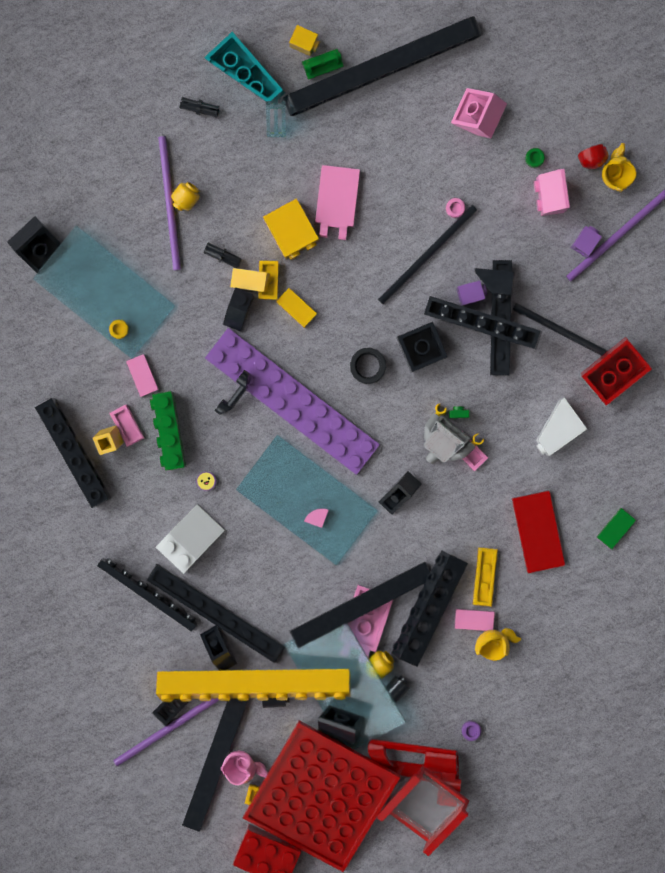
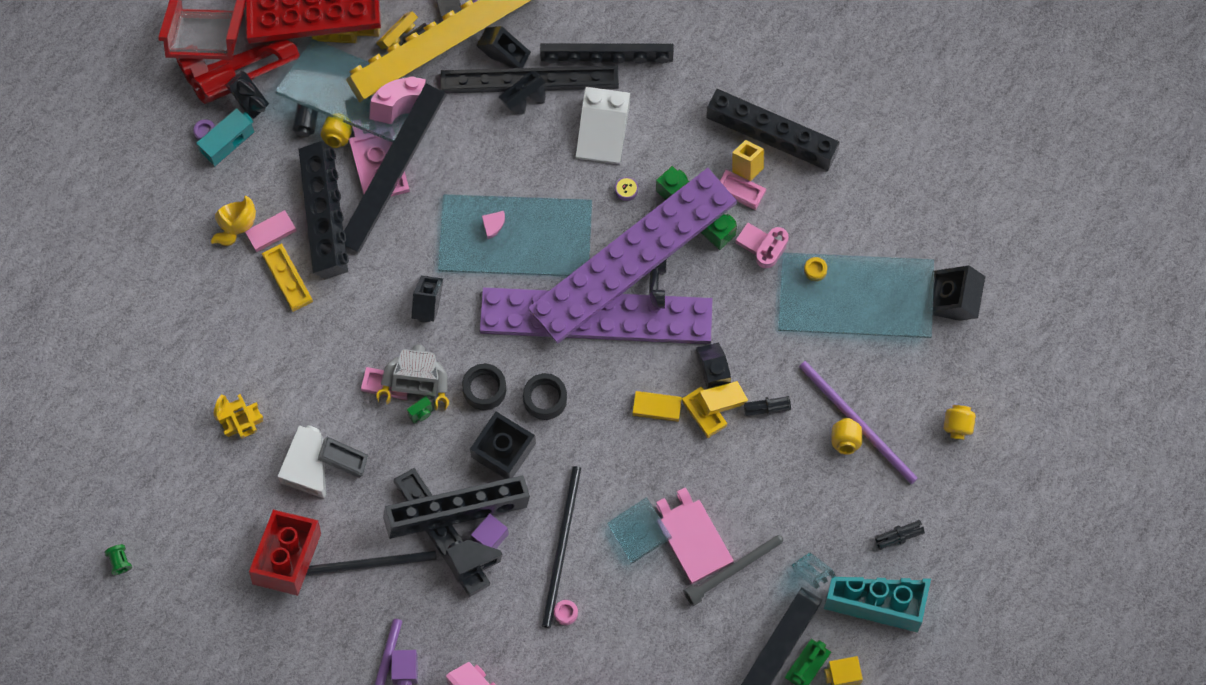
camera: 145 degrees right, 20 degrees down
(102, 154) = (959, 421): none -> yellow head
(140, 368) = (776, 250): none -> bright pink beam
(224, 605) = (529, 86): none -> black tile
(239, 421) = (632, 255): none -> medium lavender plate
(290, 714) = (402, 26): none -> yellow plate
(291, 229) = (717, 475): yellow brick -> none
(324, 656) = (395, 99): none -> bright pink brick
(340, 724) = (337, 53): black slope -> none
(362, 160) = (695, 593): none -> dark grey piece
(369, 228) = (639, 530): none -> clear light blue tile
(404, 415) = (484, 369): none -> black tyre
(426, 734) = (247, 94): none -> black tile
(460, 714) = (226, 137): none -> teal brick
(533, 414) = (343, 457): none -> black tile
(538, 531) = (261, 353): red tile -> none
(588, 502) = (239, 421): none -> yellow piece
(616, 528) = (182, 406): green tile -> none

